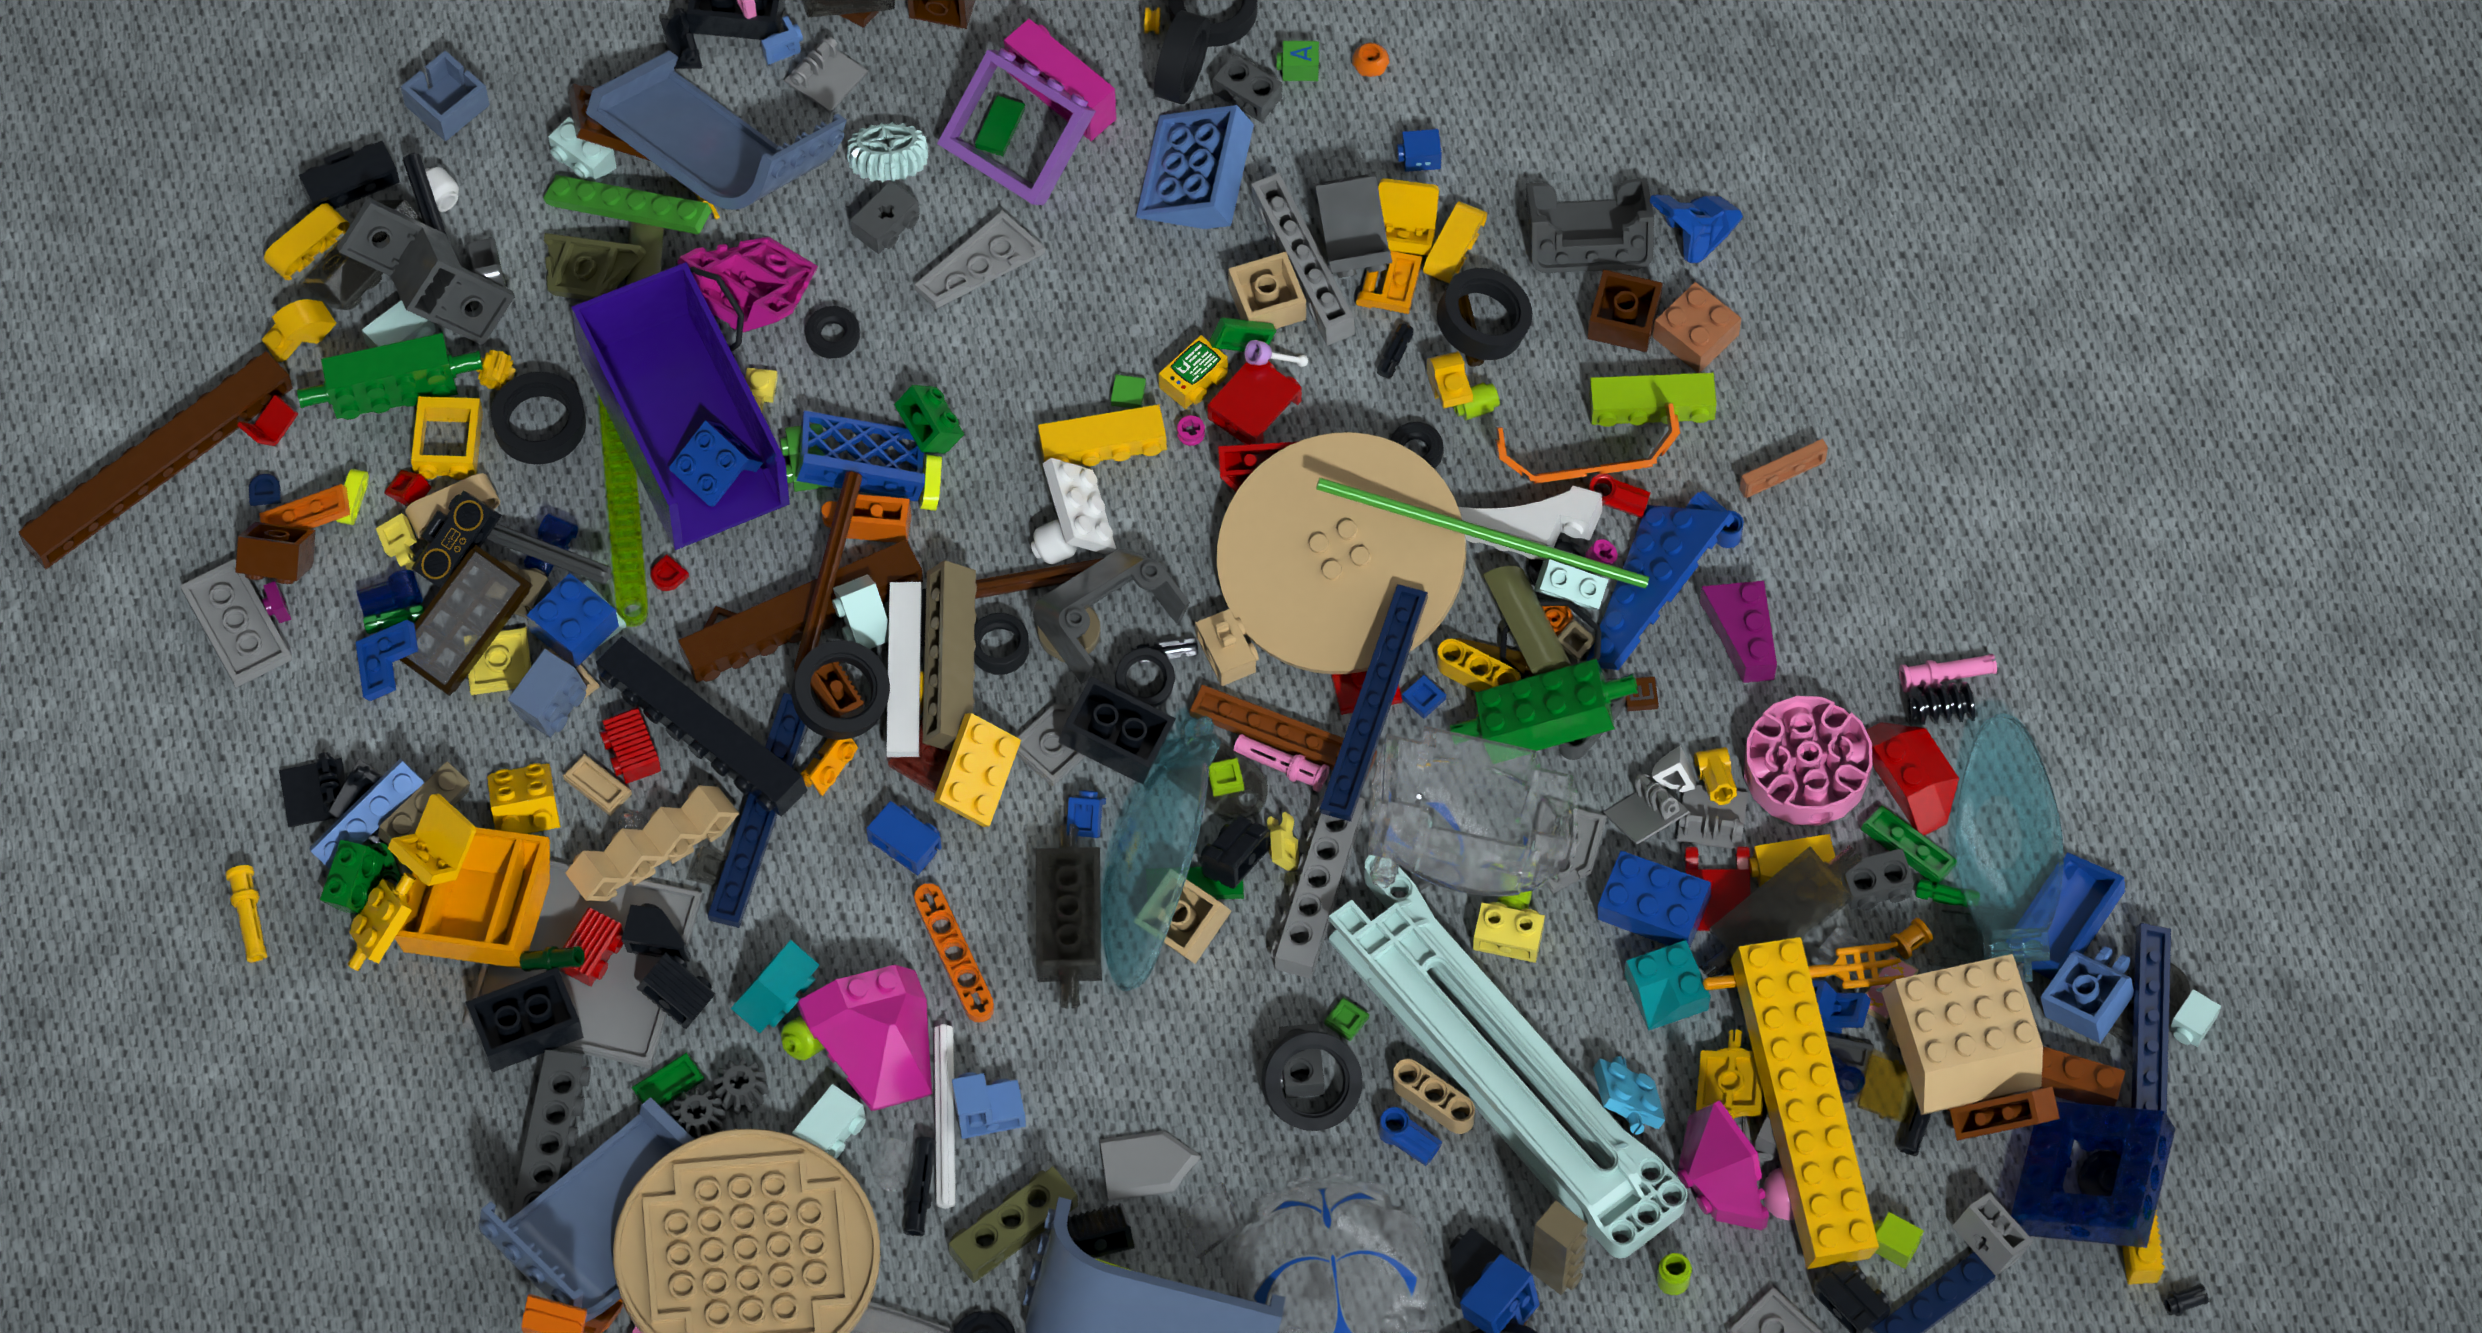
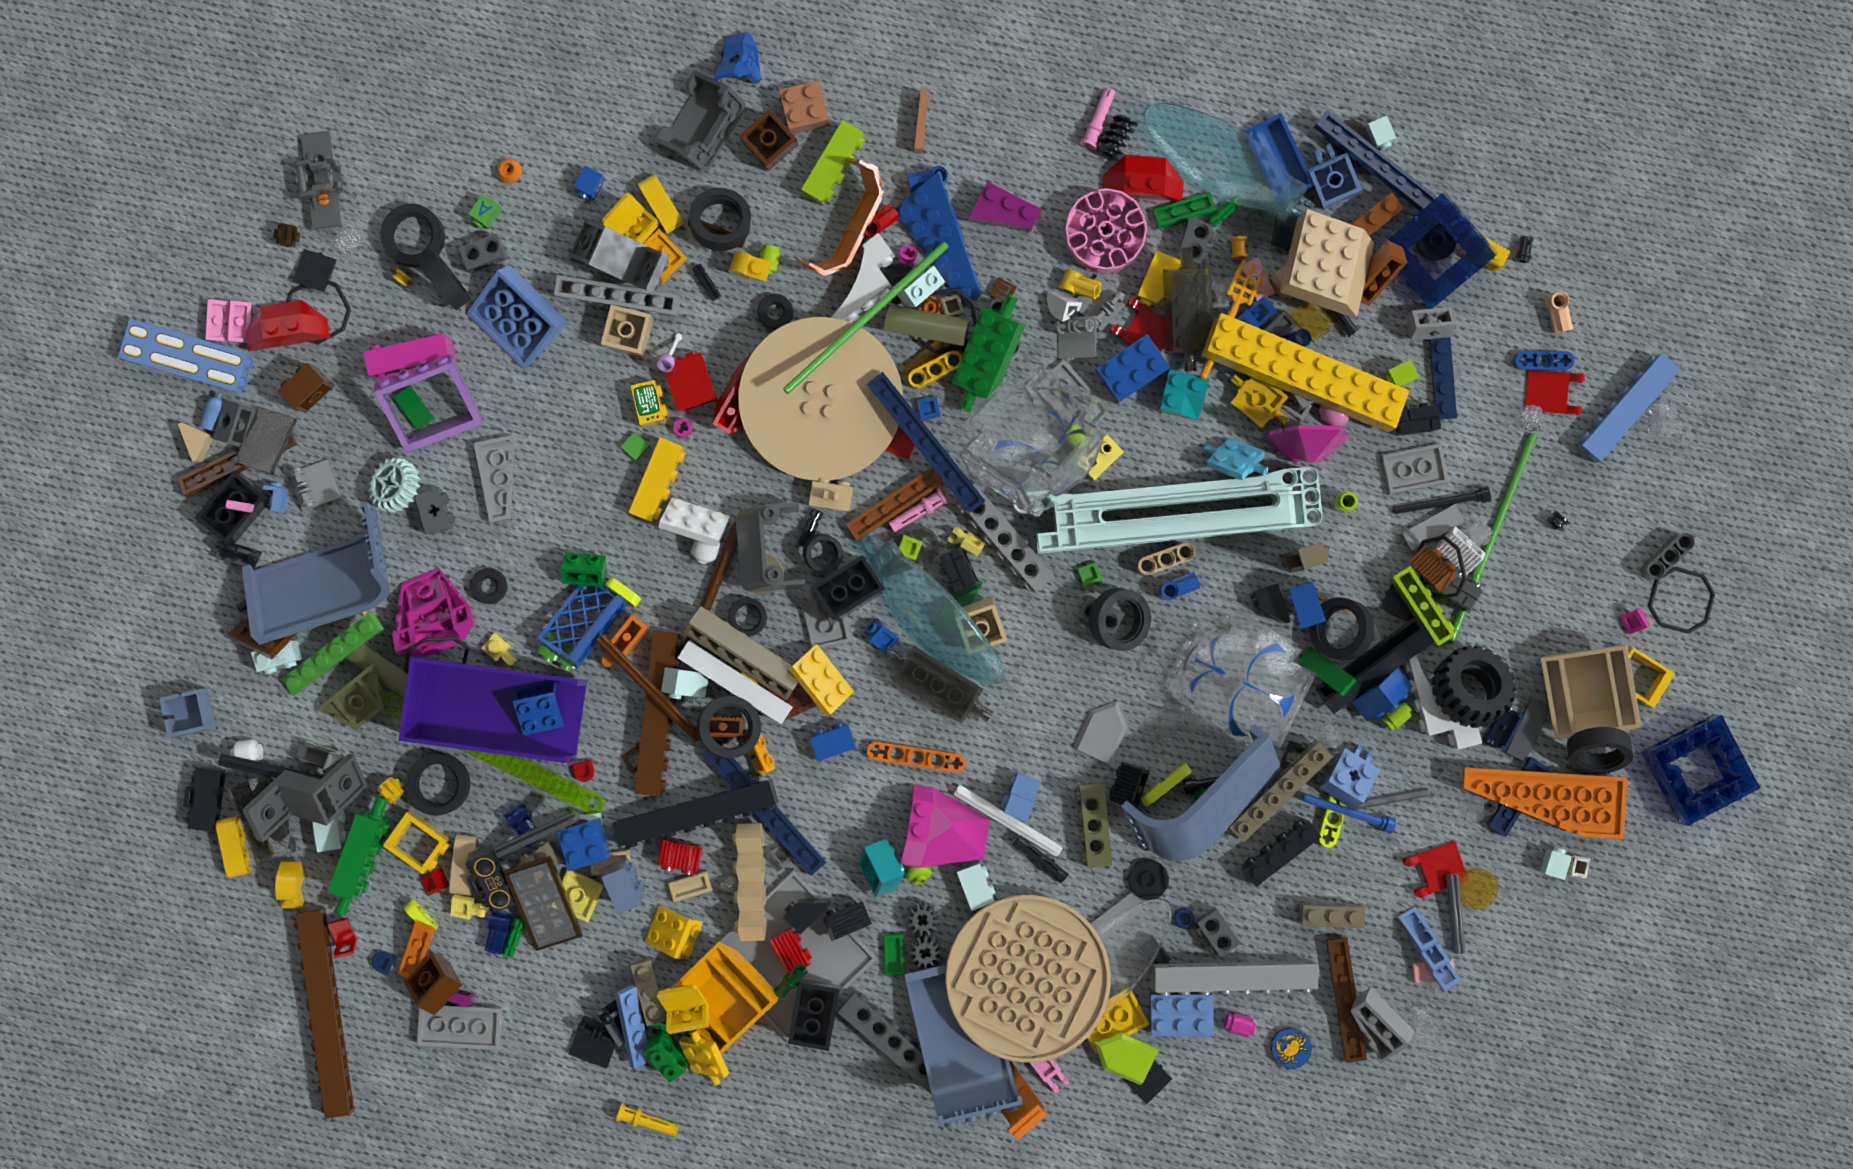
camera: 55 degrees left, 25 degrees up
(377, 654) = (533, 961): blue plate -> none
(1236, 333) = (646, 362): green tile -> none

